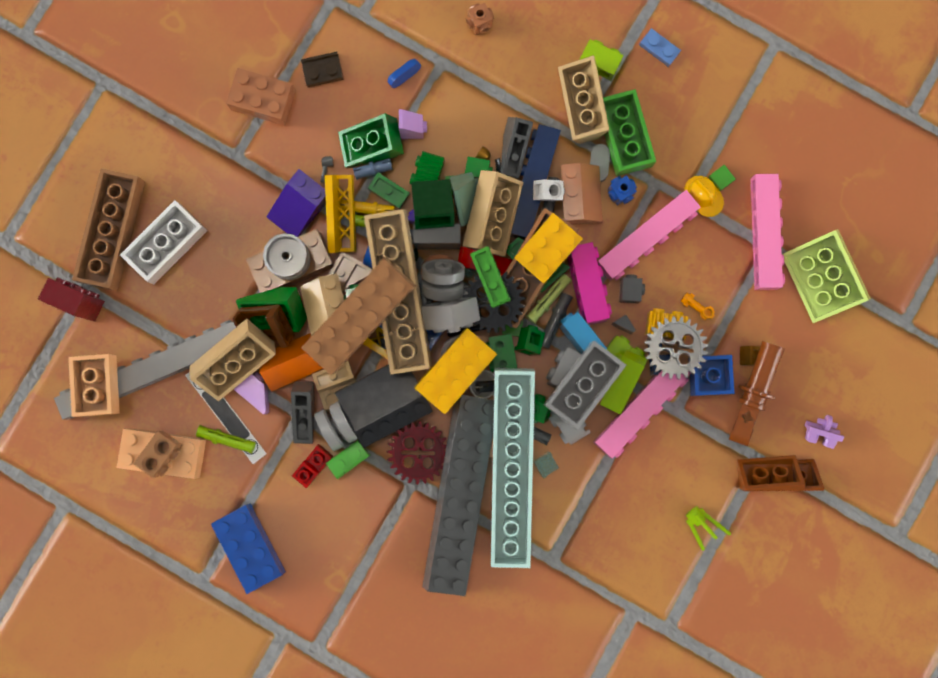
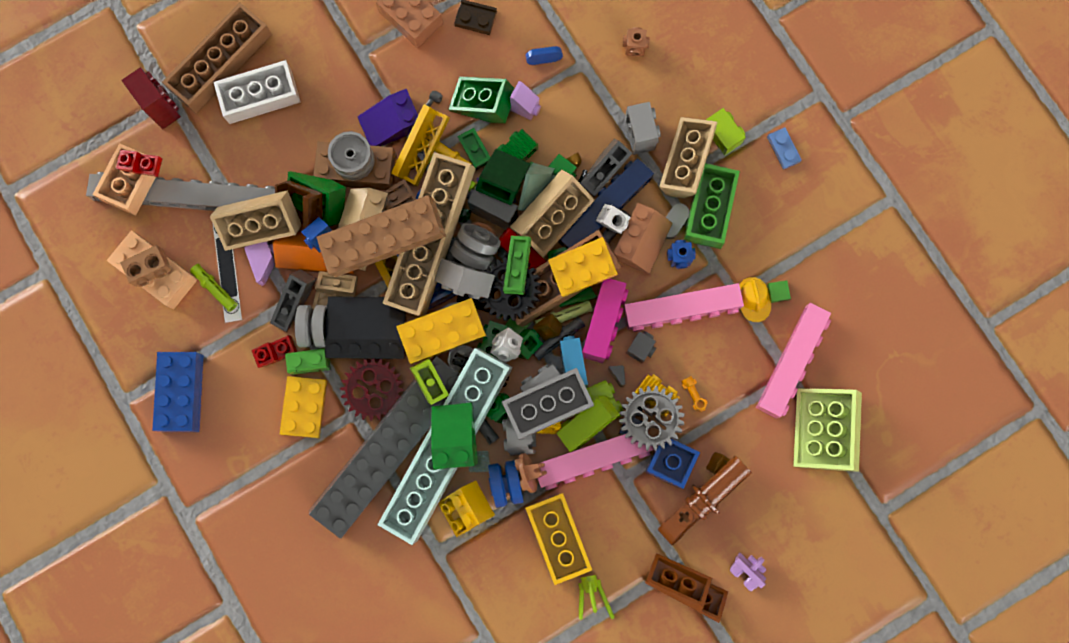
camera: 35 degrees right, 5 degrees down
(98, 366) = (139, 163): none -> red slope
(294, 341) = (315, 229): none -> blue brick
(365, 500) = (303, 407): none -> yellow plate
(372, 168) = (471, 122): sand blue pin -> none
(470, 421) = (429, 381): none -> lime brick
(517, 352) = (506, 345): none -> white brick
(518, 457) = (453, 436): none -> green slope
(528, 94) = (641, 128): none -> light grey brick
(542, 316) = (548, 327): none -> pearl gold slope
(557, 510) = (466, 508): none -> yellow slope
(579, 472) = (503, 484): none -> blue wheel
(597, 450) = (529, 472): none -> nougat plate
(650, 493) = (558, 539): none -> yellow brick

